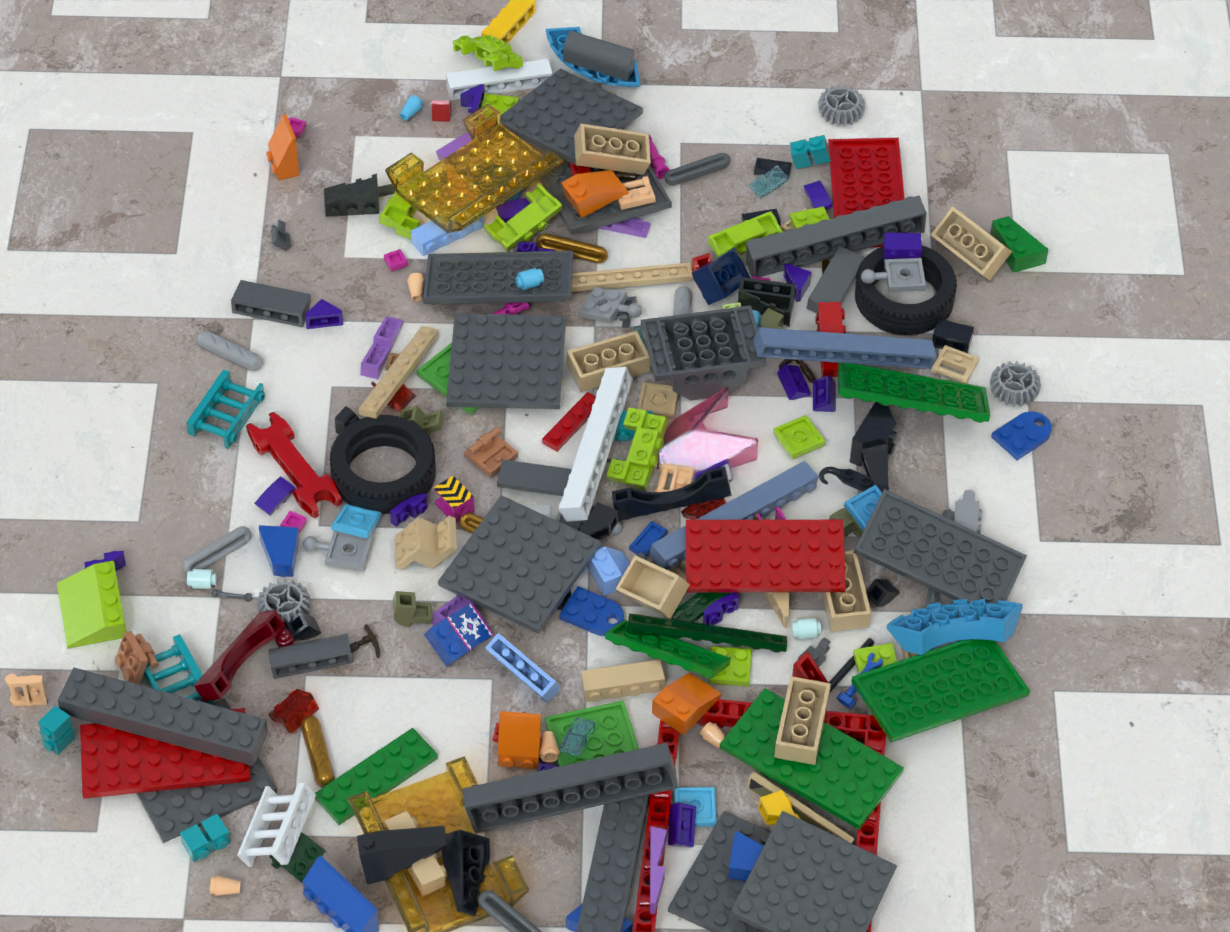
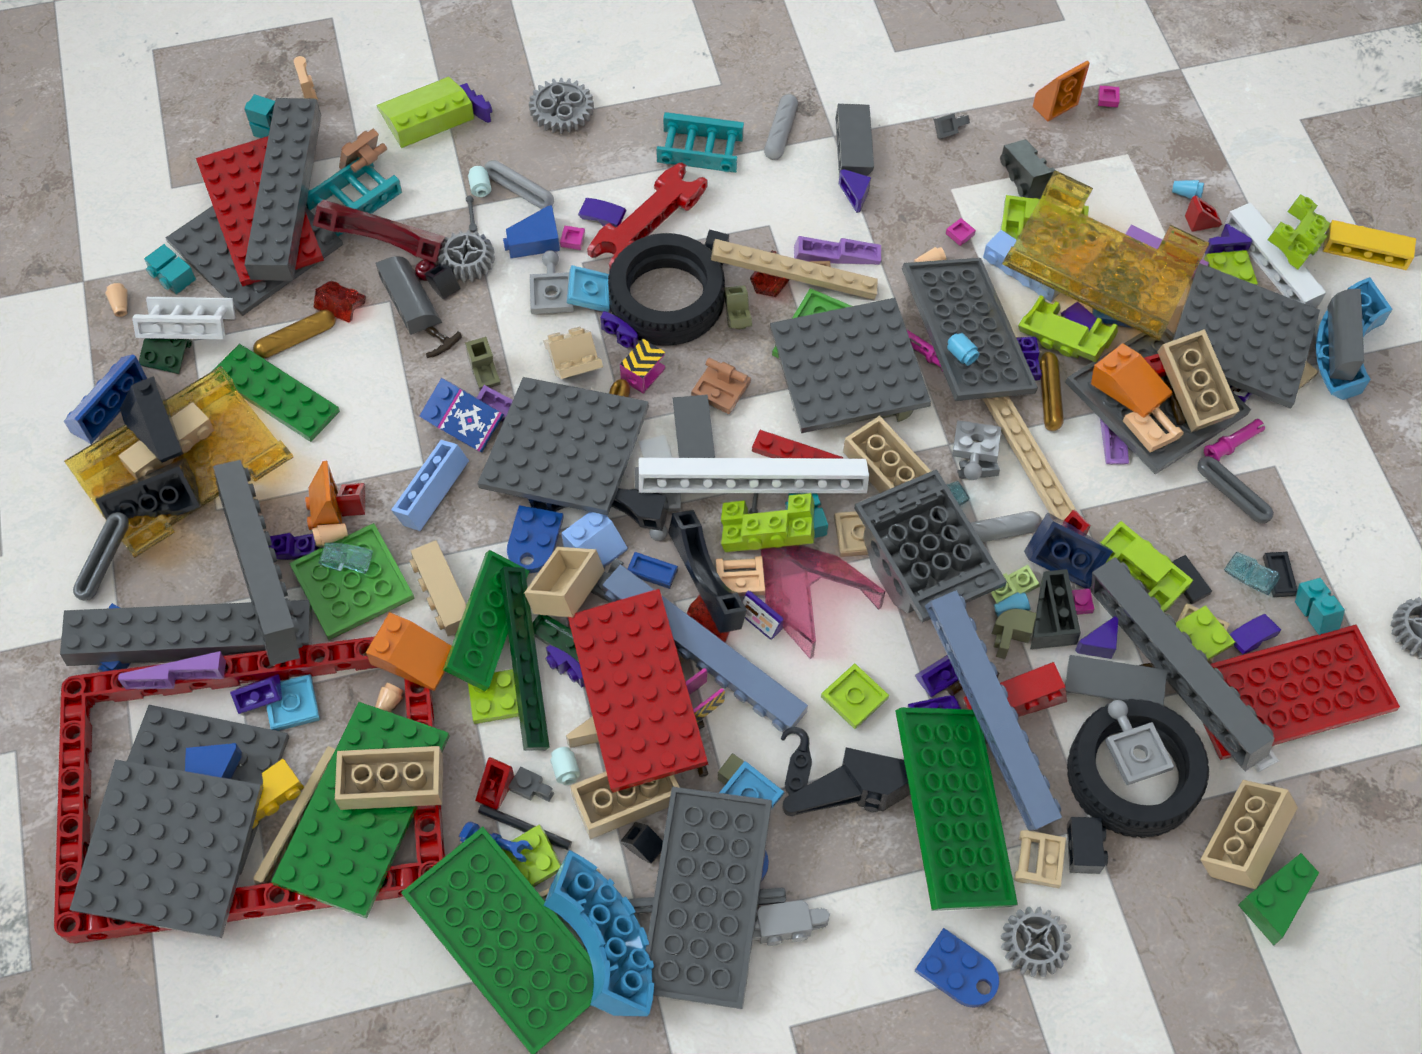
camera: 75 degrees right, 10 degrees up
(136, 500) = (561, 105): none -> light grey gear
(902, 245) = (1184, 740): dark purple brick -> none

